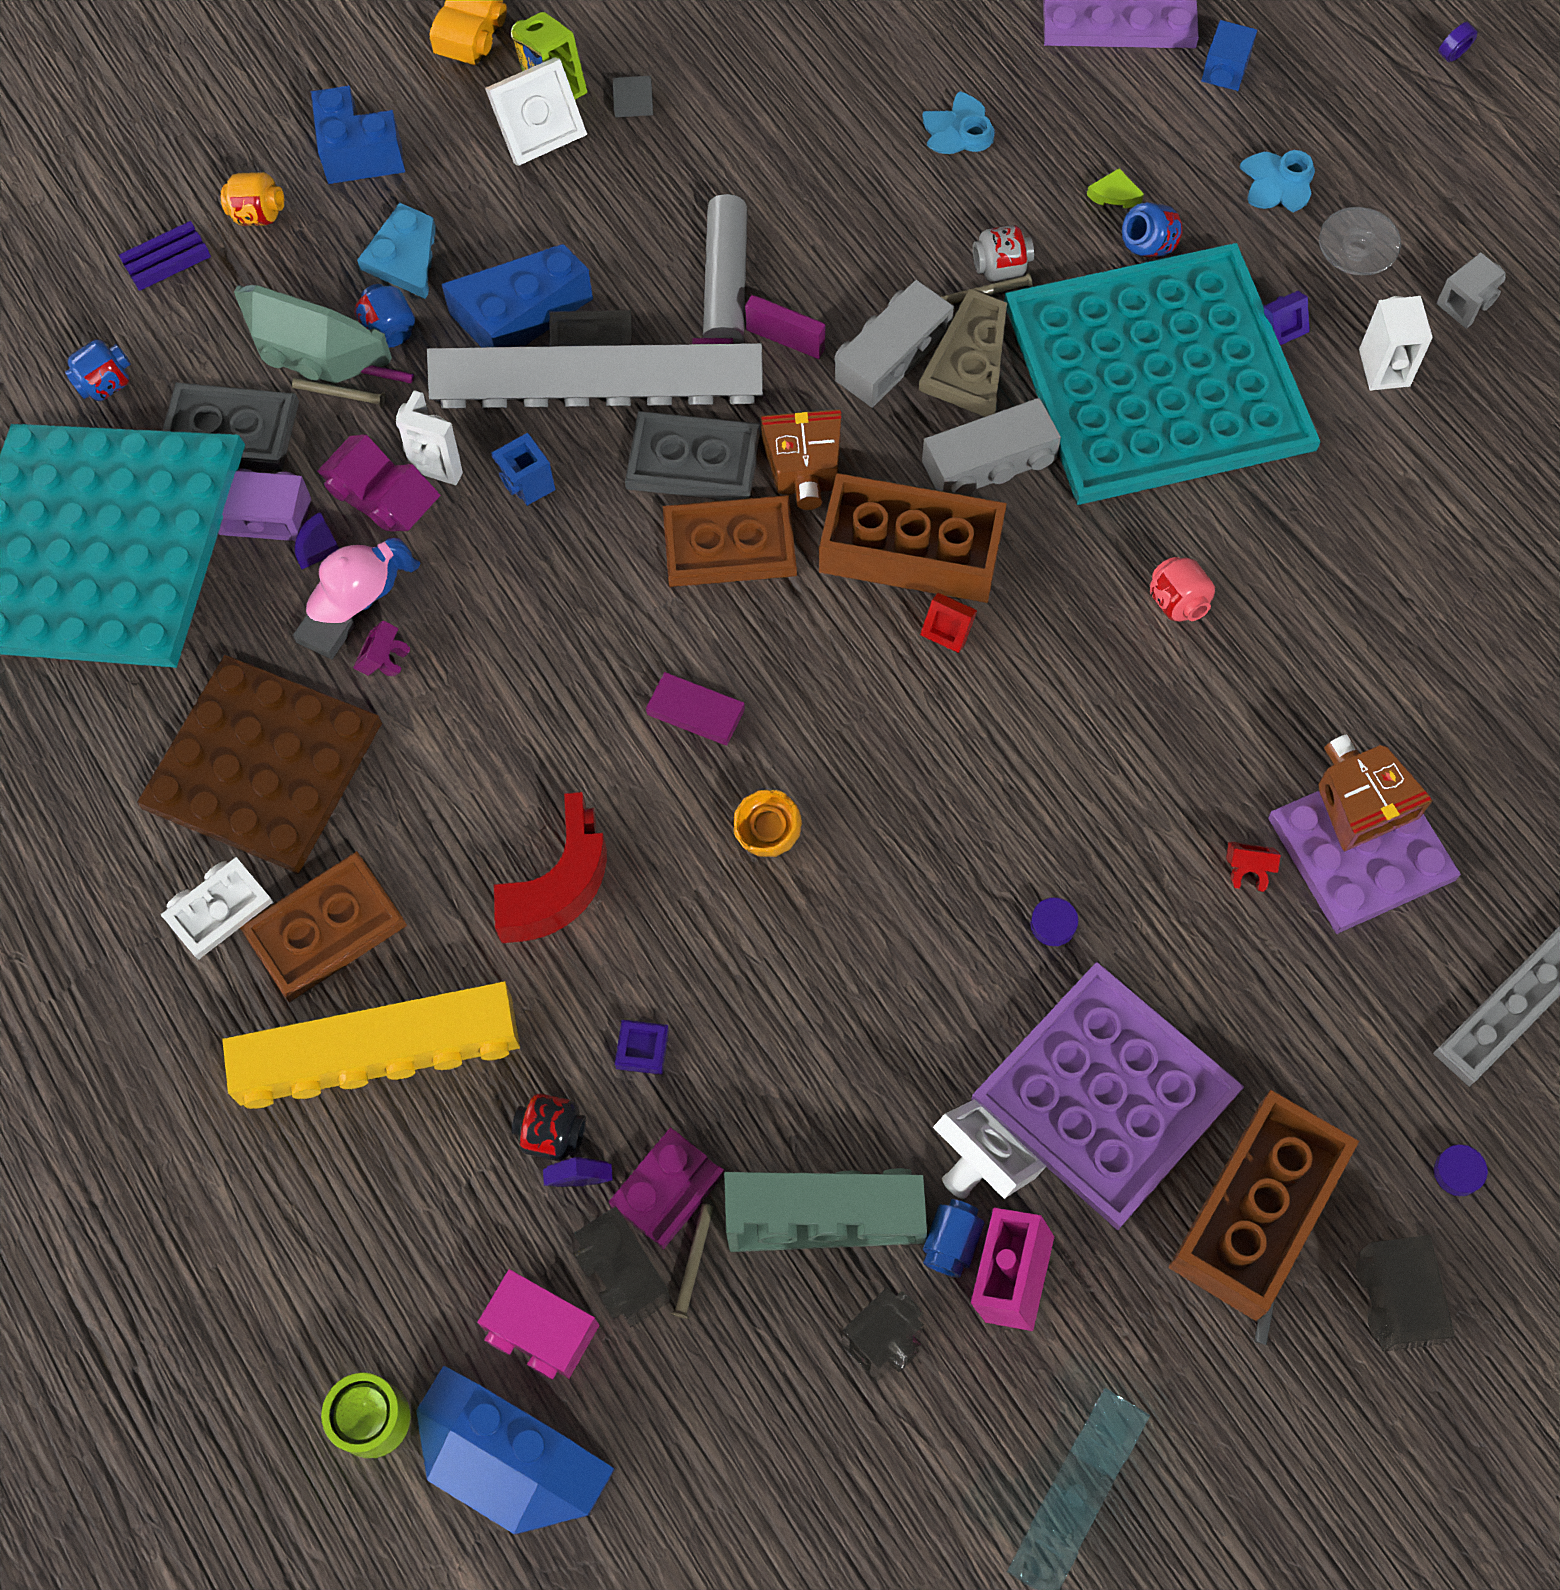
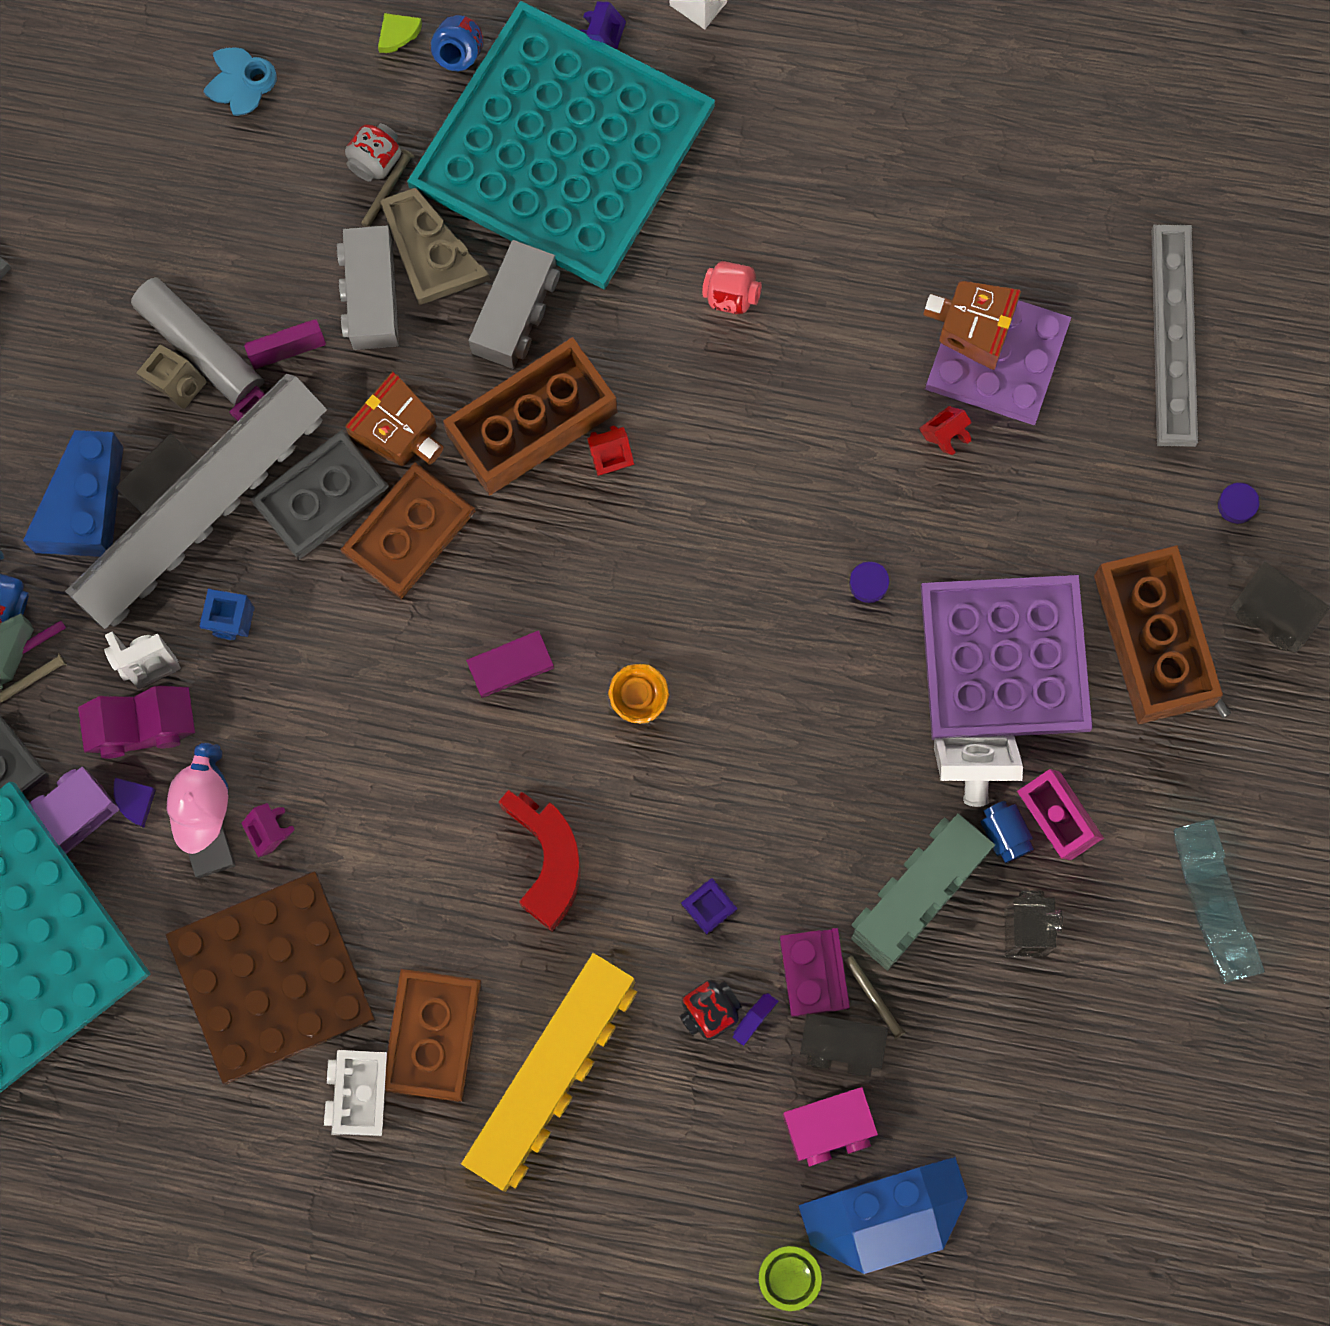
camera: 45 degrees left, 10 degrees up
(679, 280) = (172, 376): none -> dark tan bracket

